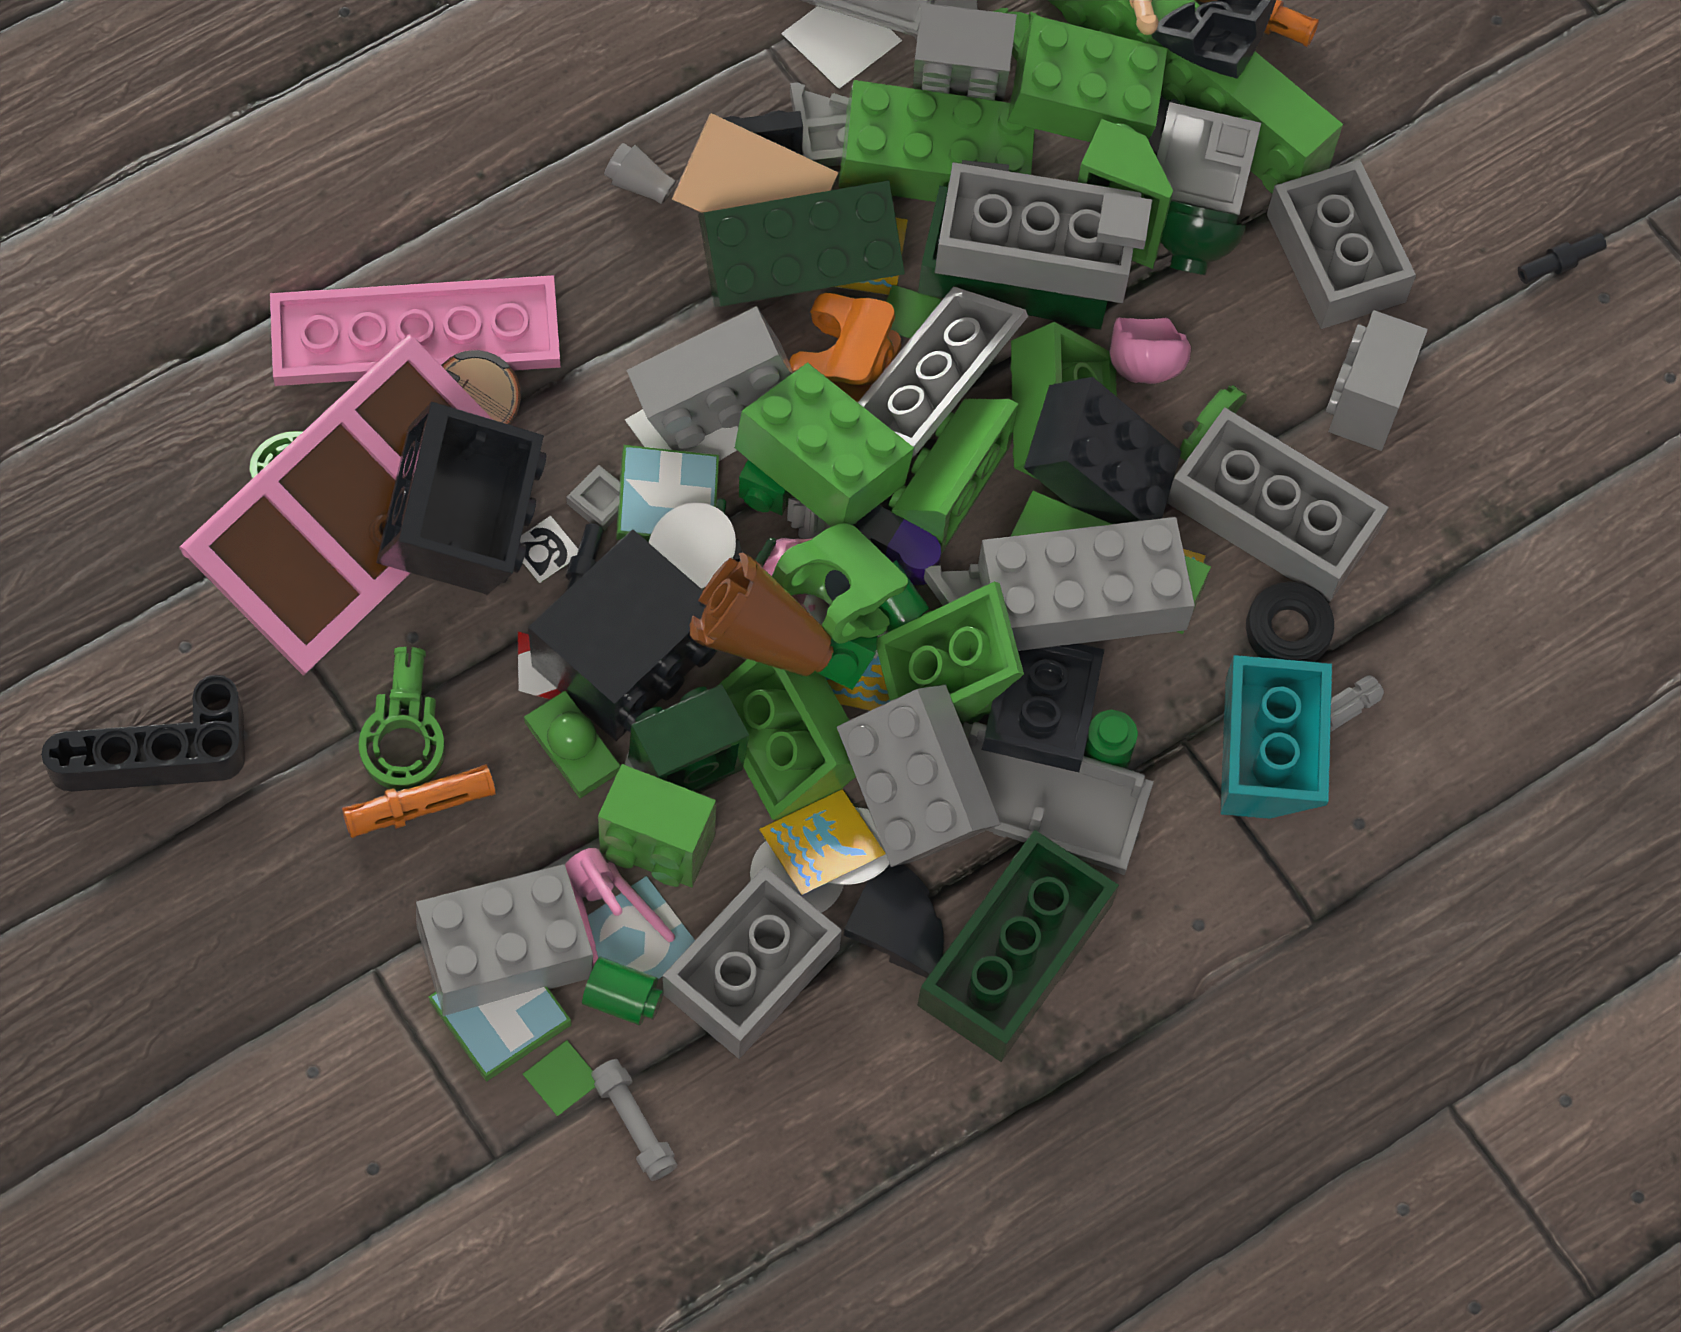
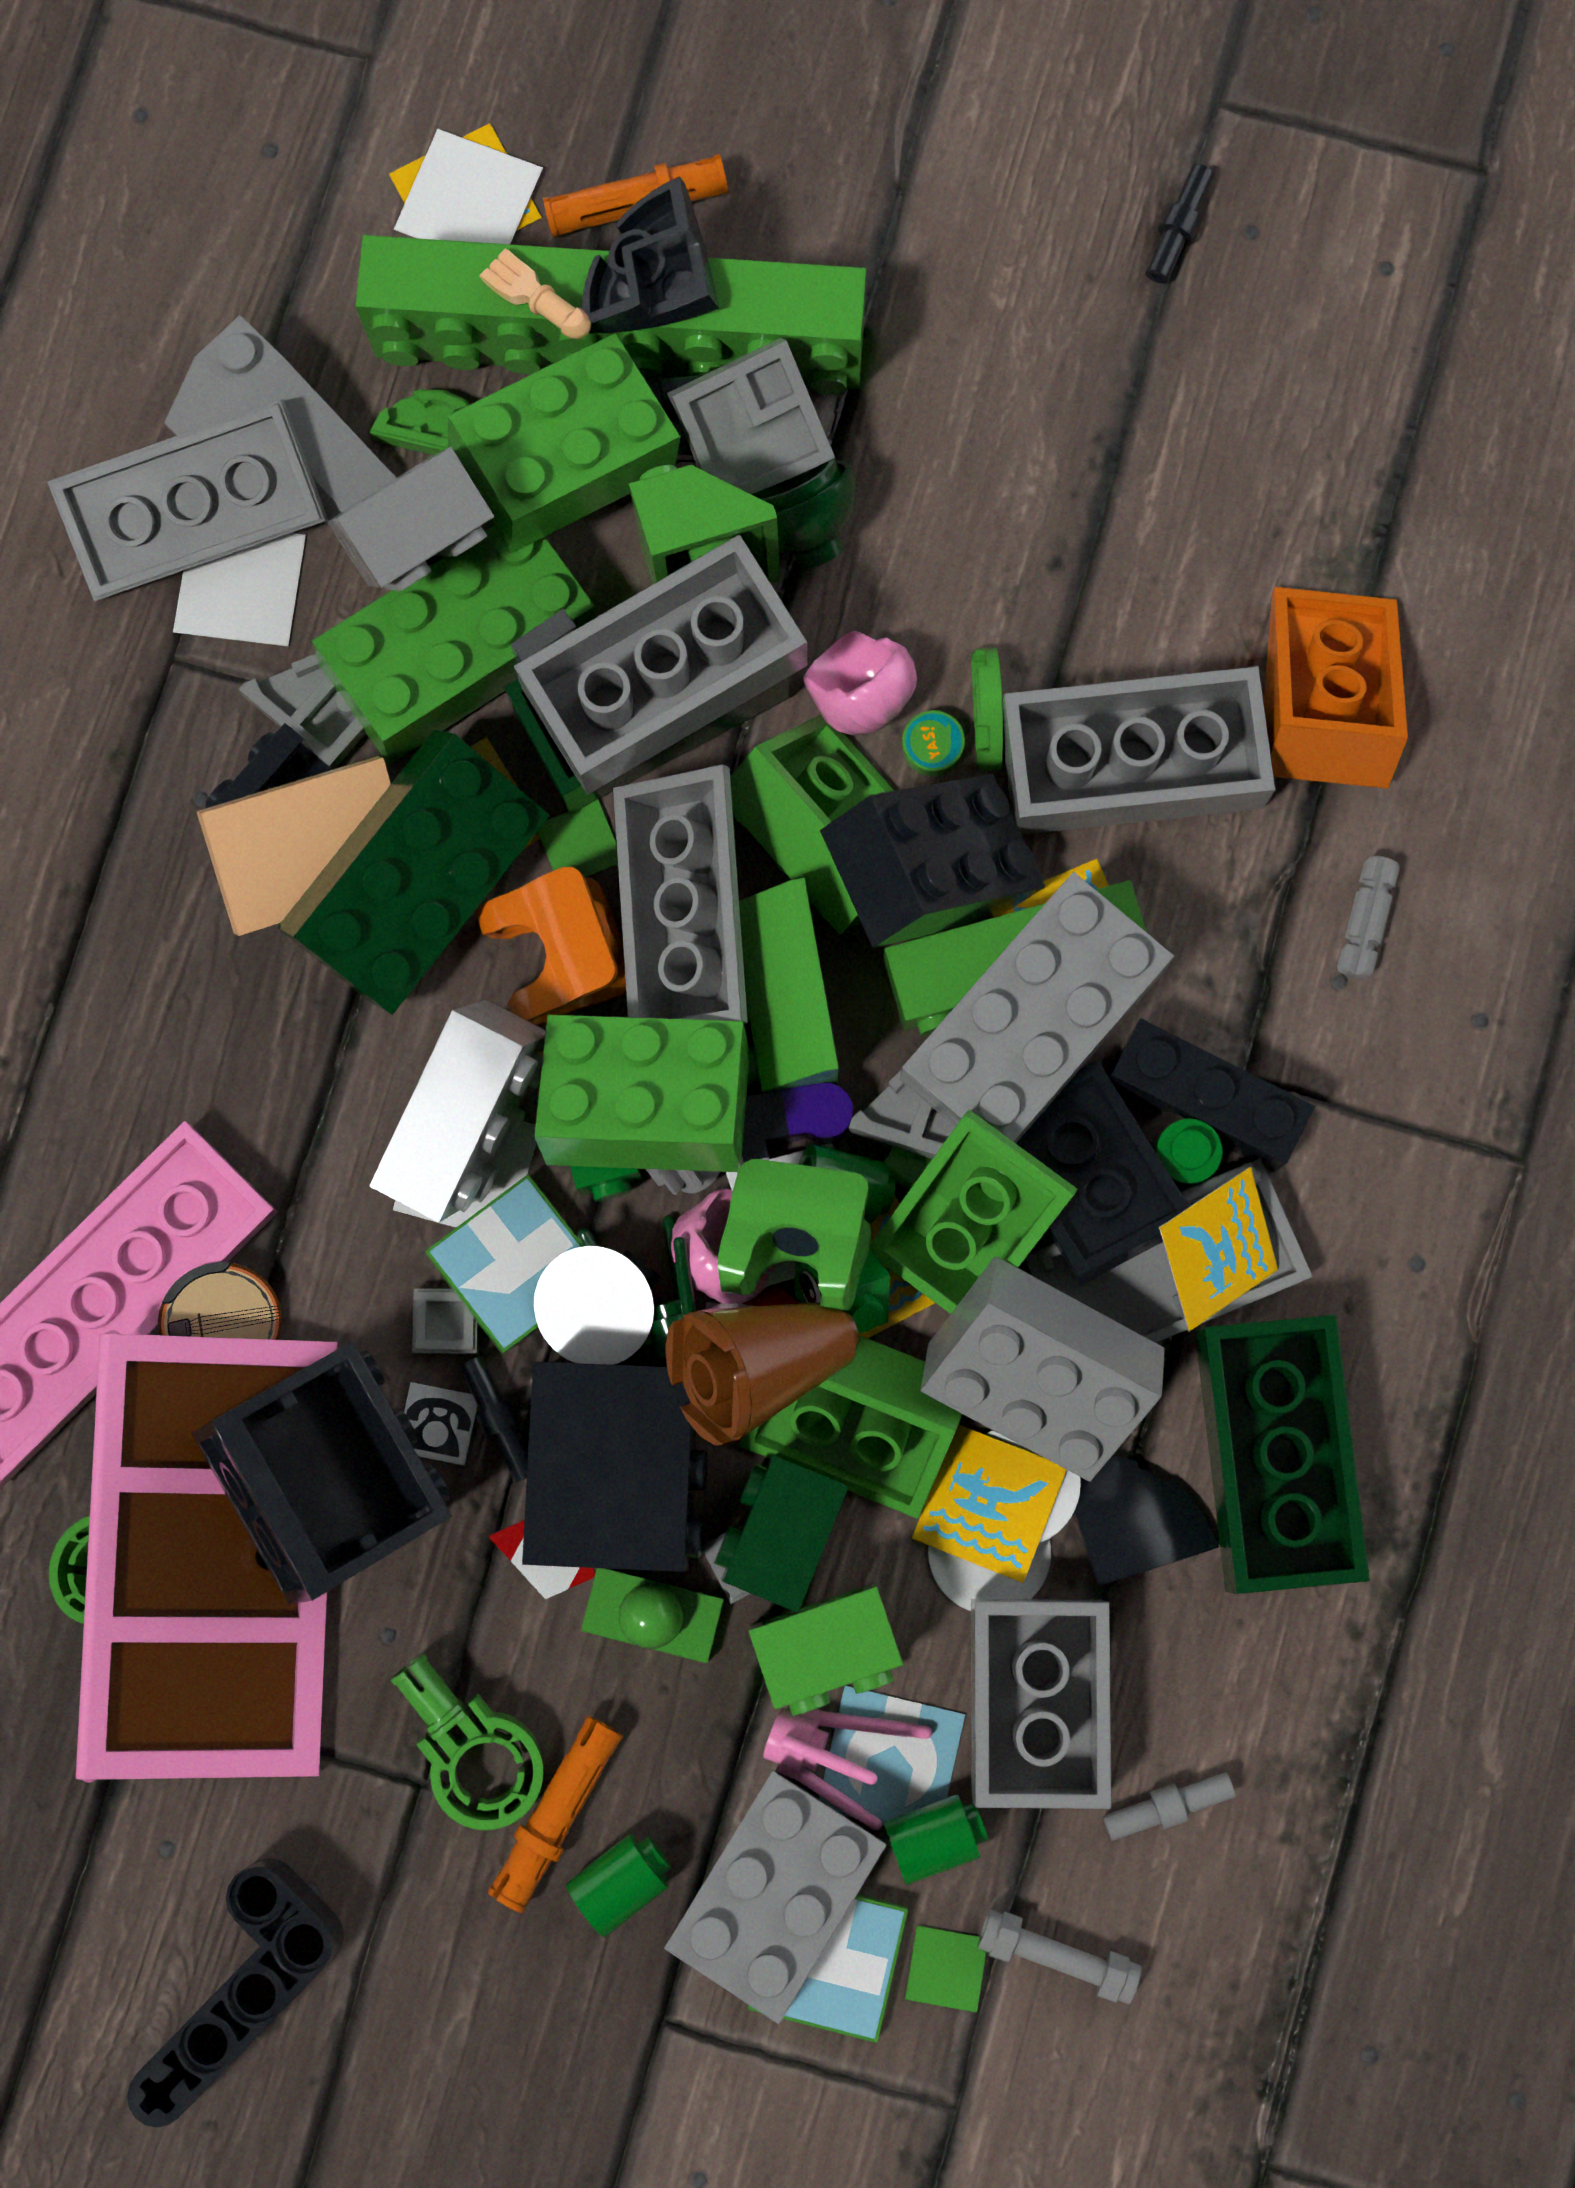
camera: 30 degrees left, 15 degrees up
(420, 865) = (620, 1883): none -> green brick
(638, 174) = (170, 926): light grey cone -> none
(774, 1093) = (1169, 1806): none -> light grey bar
(1082, 797) = (1219, 1248): none -> yellow sticker
(1124, 220) = (752, 585): light grey tile -> none
(1165, 414) = (933, 743): none -> bright green tile
(1165, 741) = (1190, 1082): none -> black arch
(1275, 737) = (1345, 1010): teal slope -> none
(1290, 597) = (1253, 829): black tyre -> none
(1340, 244) = (956, 399): light grey brick -> none
(1374, 379) = (1122, 527): light grey brick -> none
(1427, 567) = (1334, 688): none -> orange slope

